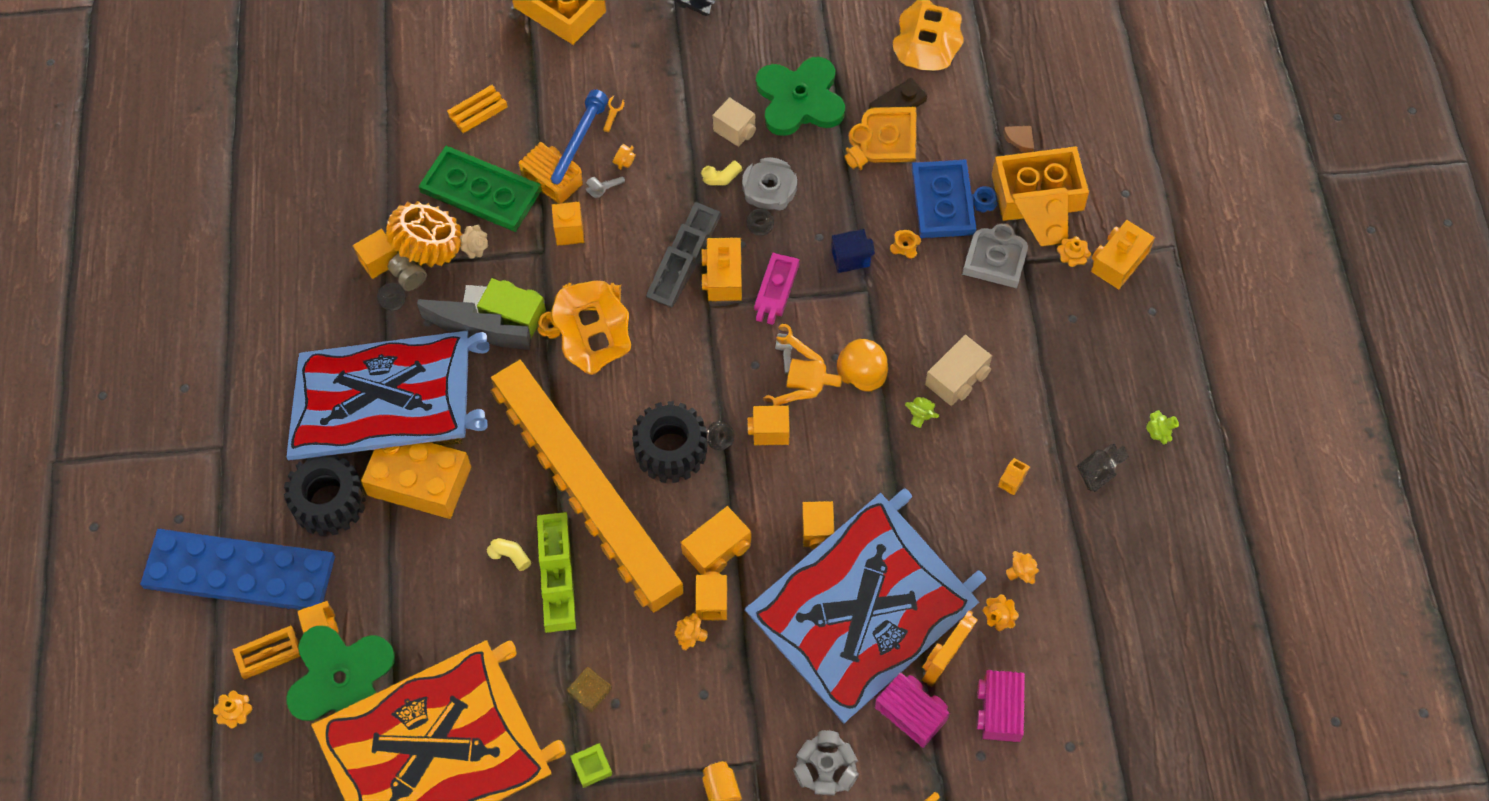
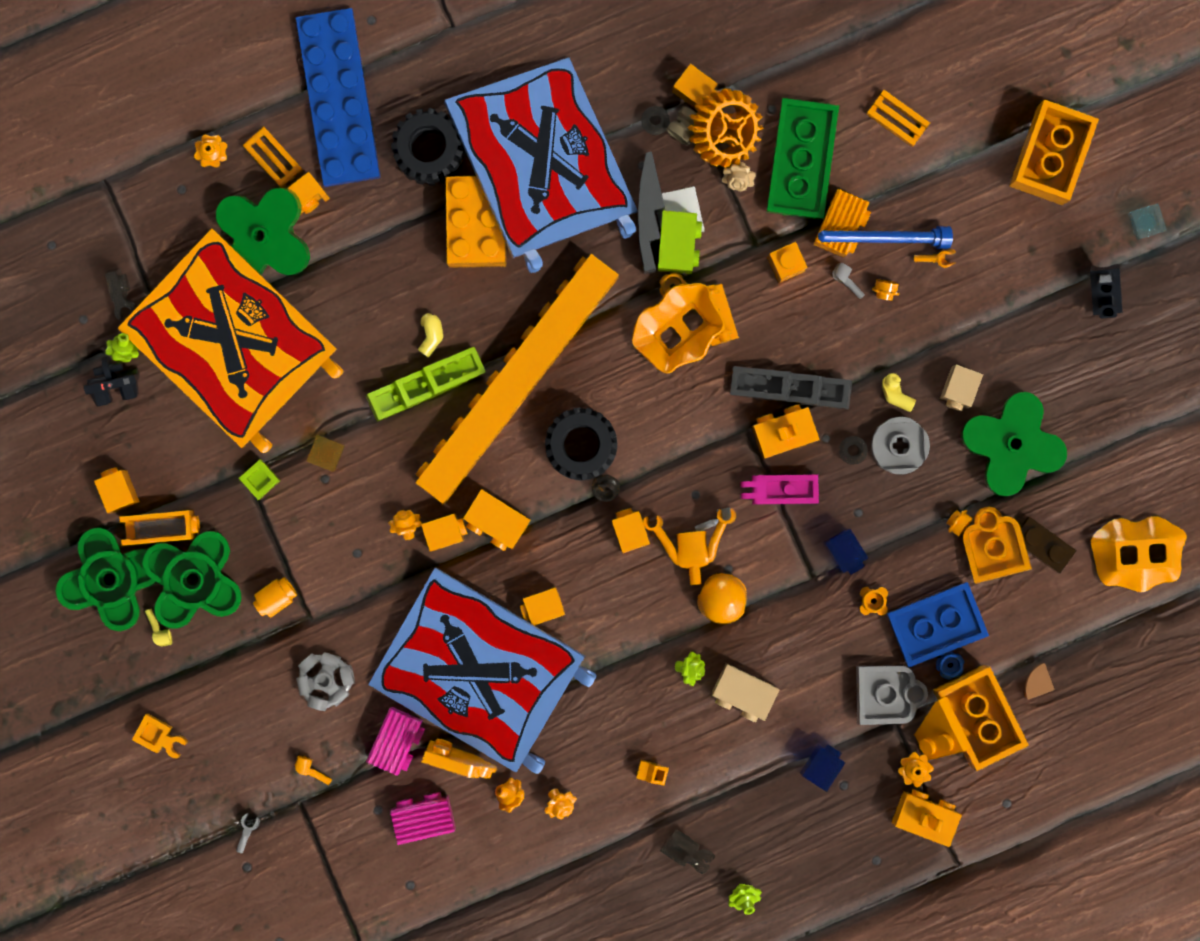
camera: 70 degrees right, 25 degrees up
(1050, 325) = (823, 766): none -> clear blue brick

